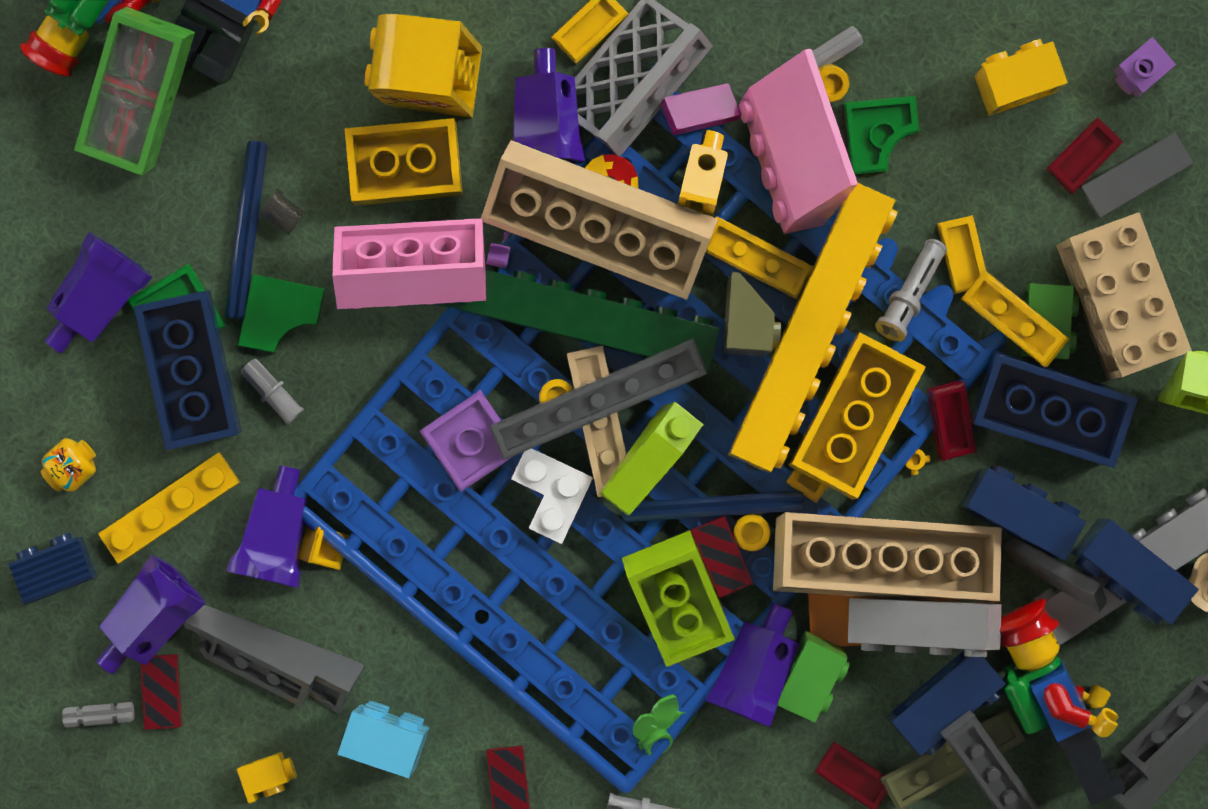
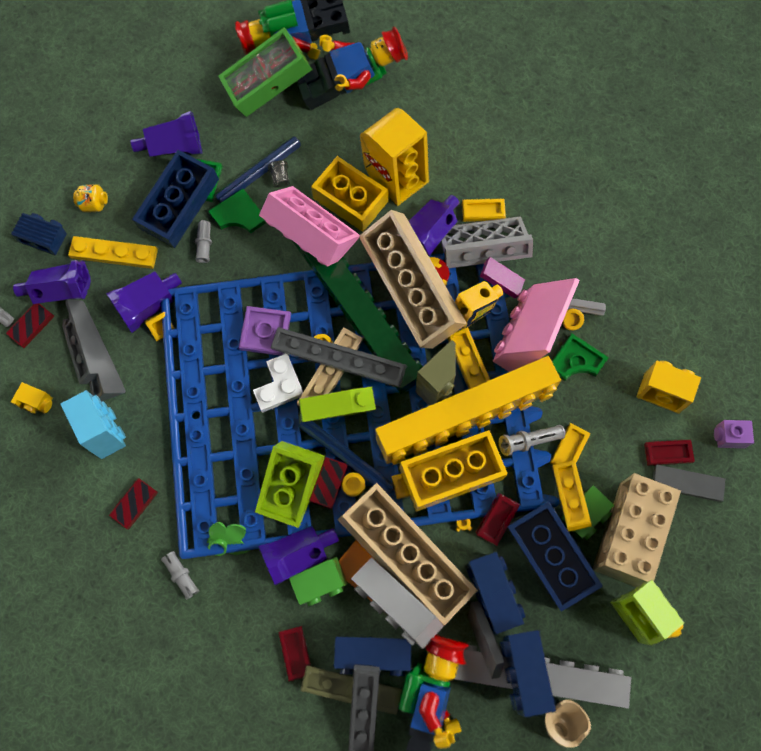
camera: 40 degrees right, 15 degrees down
(499, 253) = (353, 259): medium lavender piece -> none

